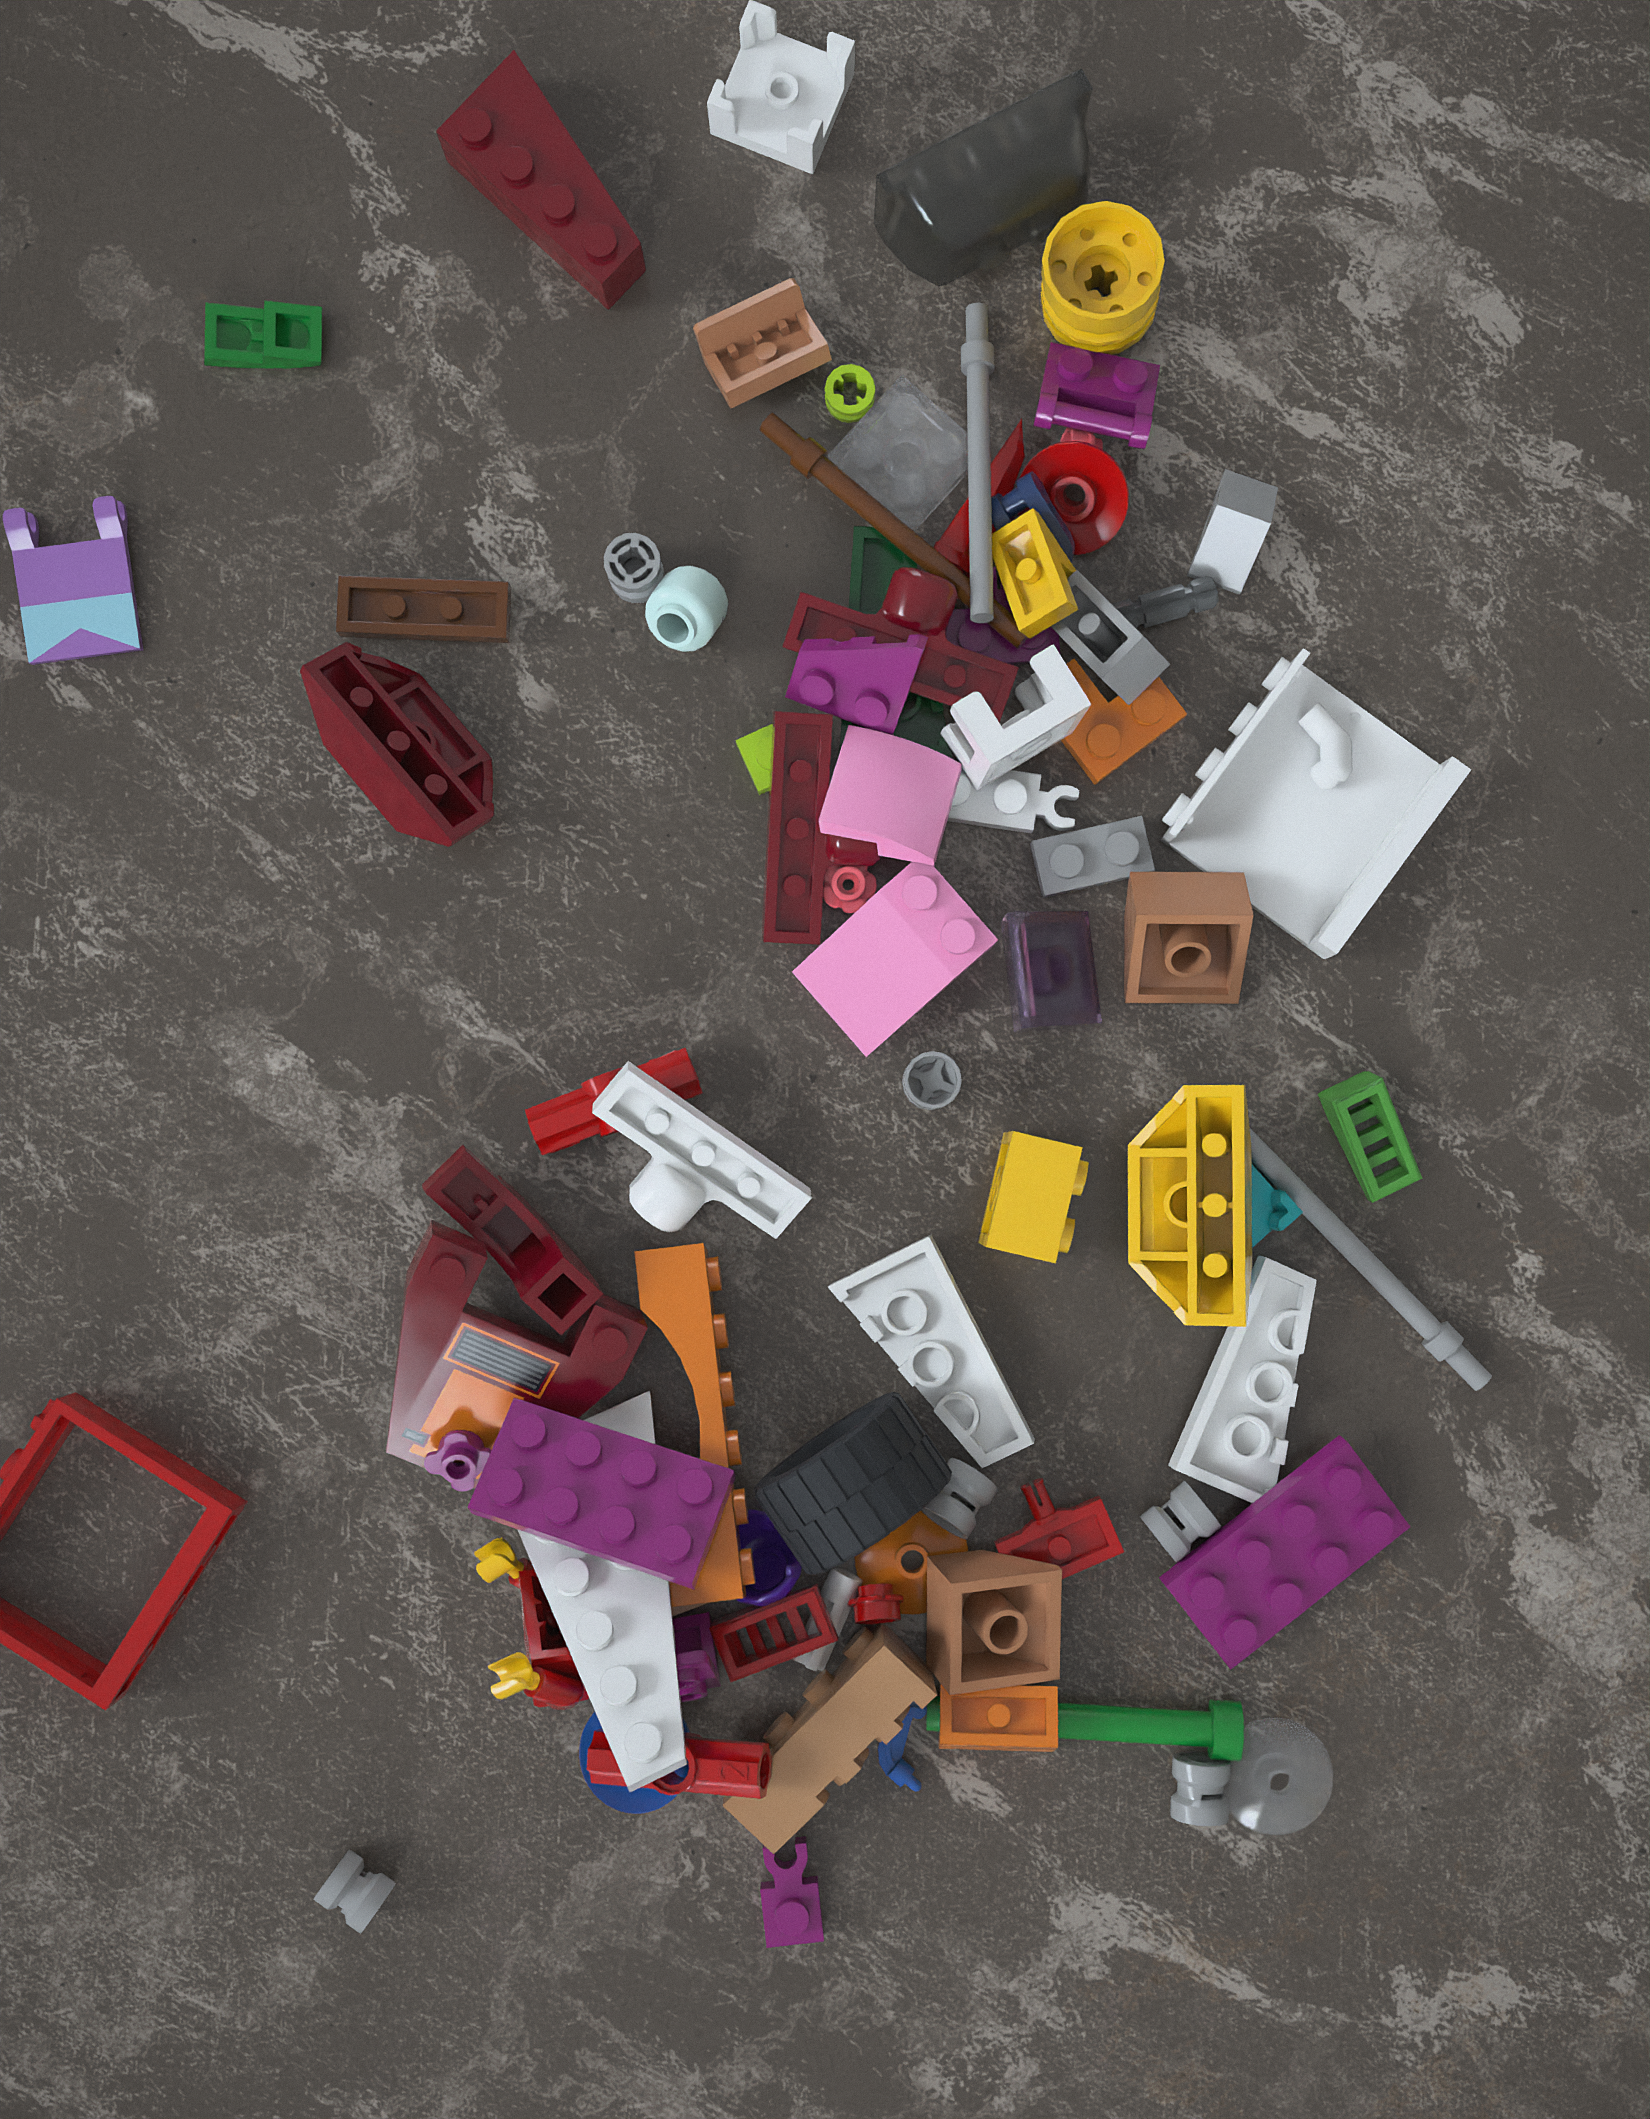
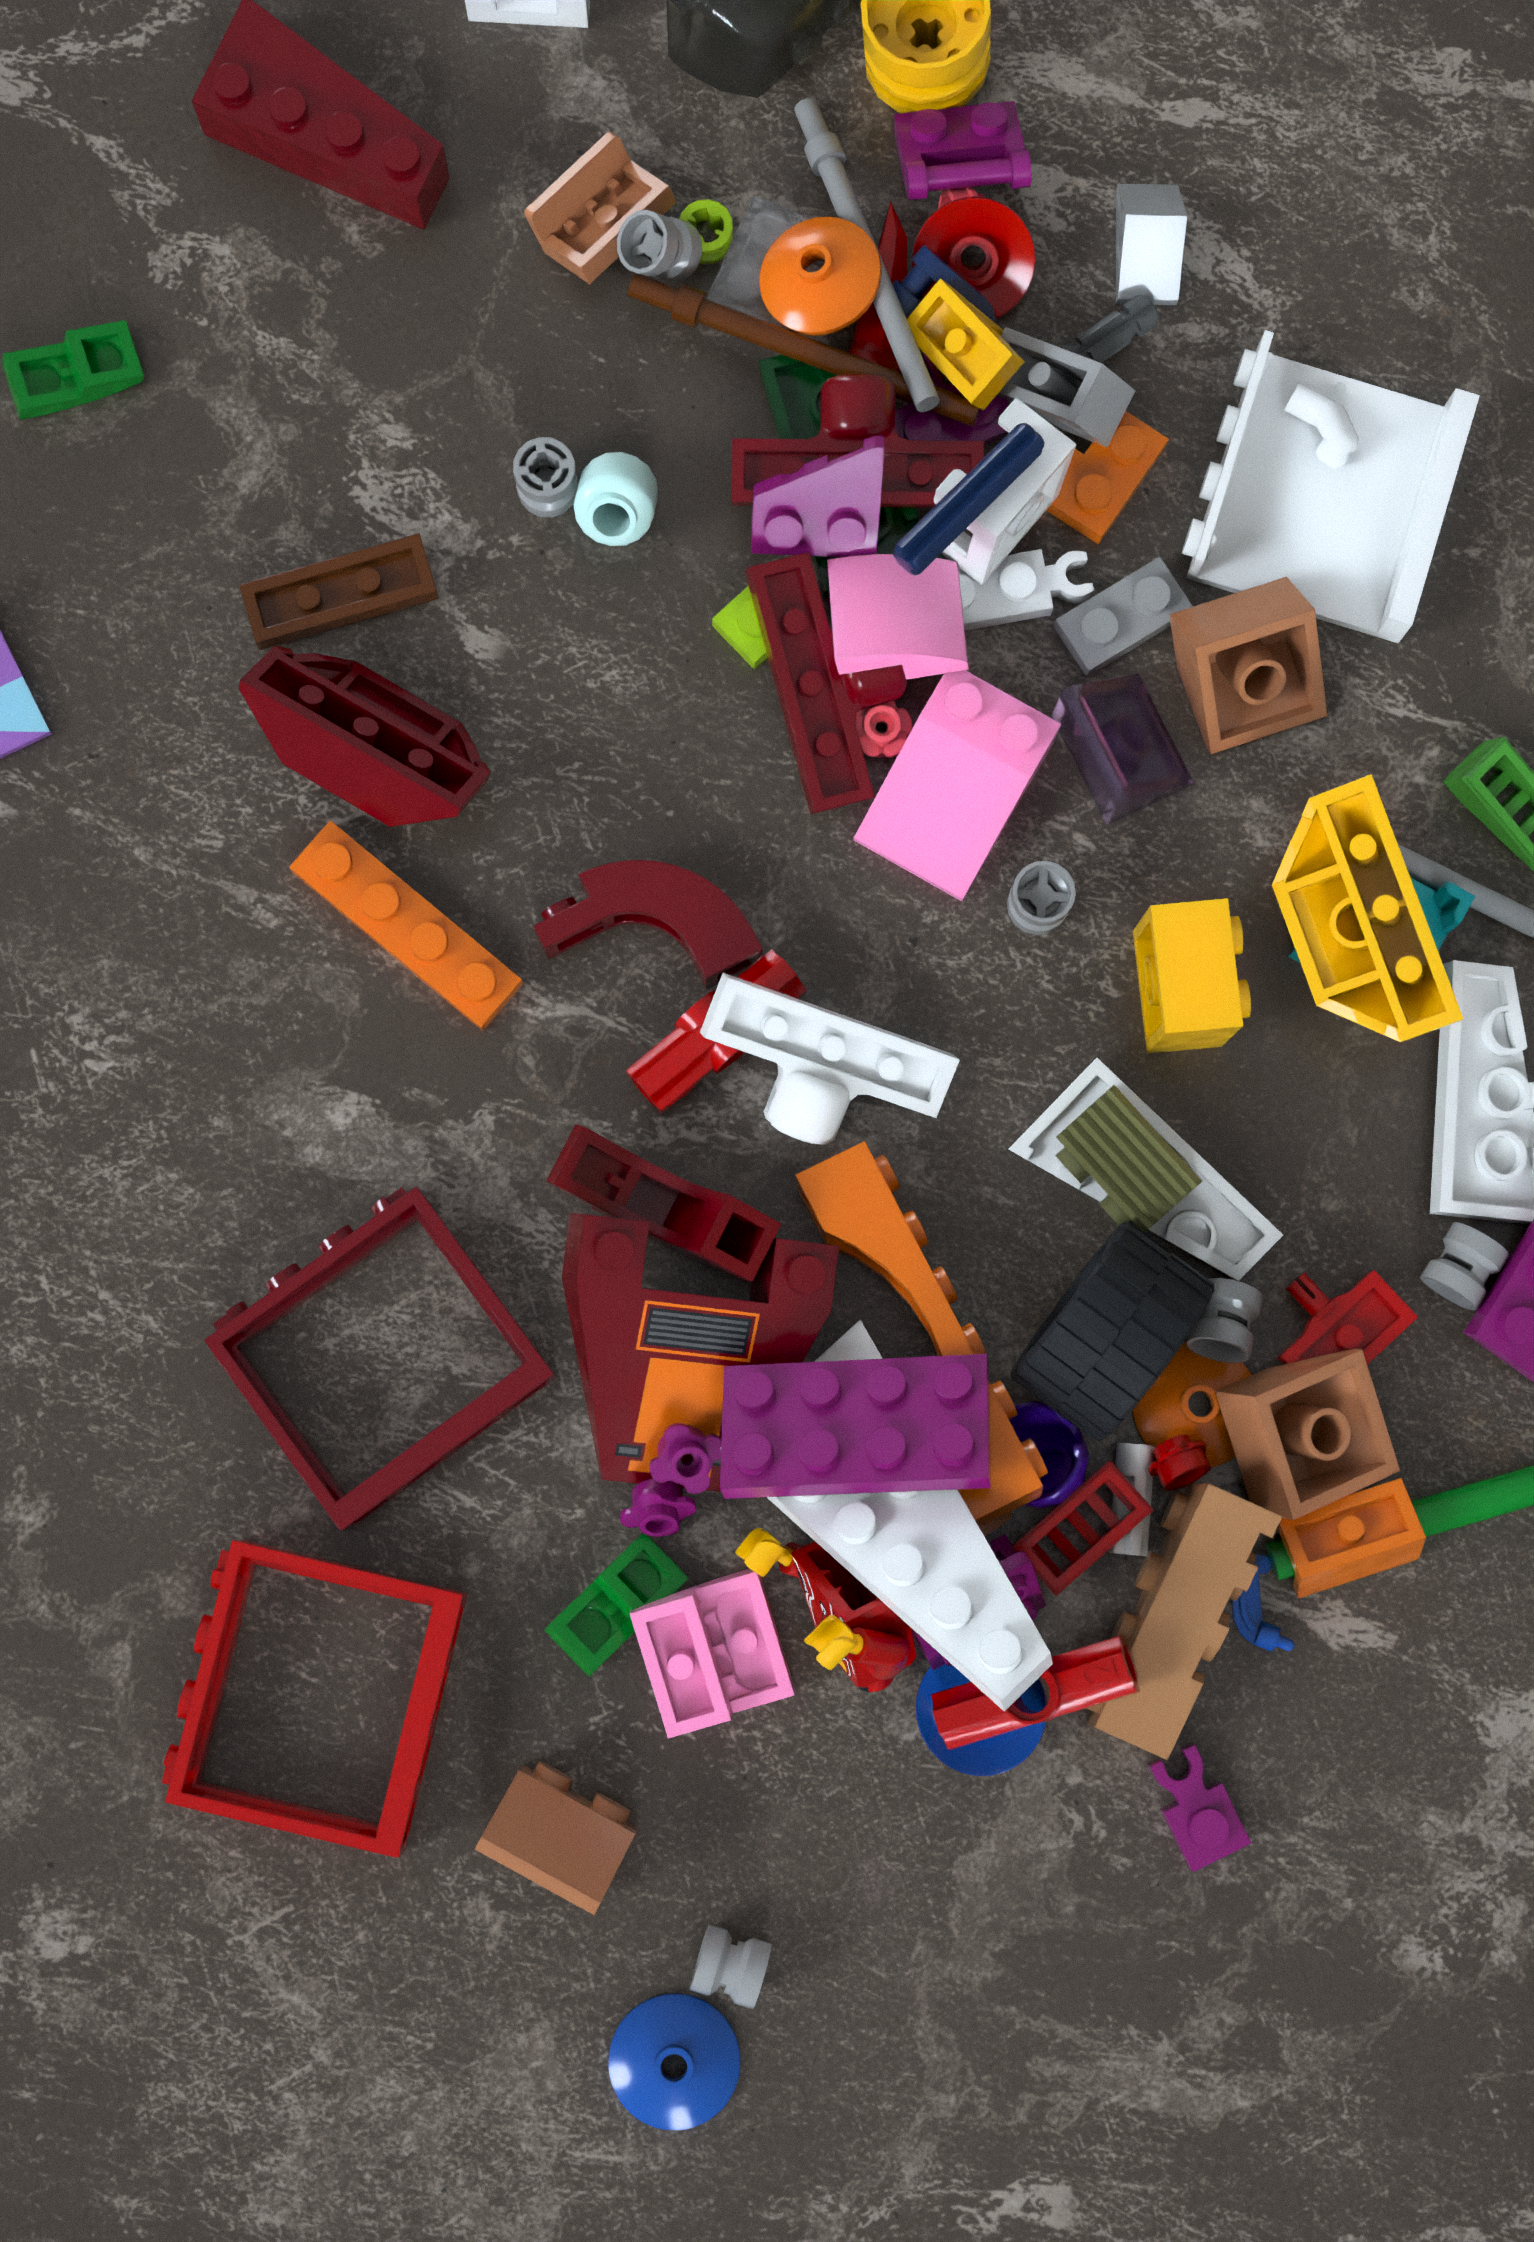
camera: 25 degrees left, 5 degrees down
(135, 1311) = (296, 1285): none -> dark red window
(243, 1740) = (558, 1836): none -> nougat slope
(302, 1927) = (681, 2027): none -> blue dish
(365, 1556) = (600, 1616): none -> green slope
(385, 918) = (406, 925): none -> orange plate
(424, 1491) = (657, 1508): none -> magenta plate
(428, 1626) = (712, 1652): none -> bright pink slope
(634, 999) = (660, 897): none -> dark red arch
(800, 395) = (659, 246): none -> light grey wheel
(920, 1338) = (1126, 1160): none -> olive brick
(934, 491) = (834, 294): none -> orange dish
(976, 724) = (968, 499): none -> dark blue axle

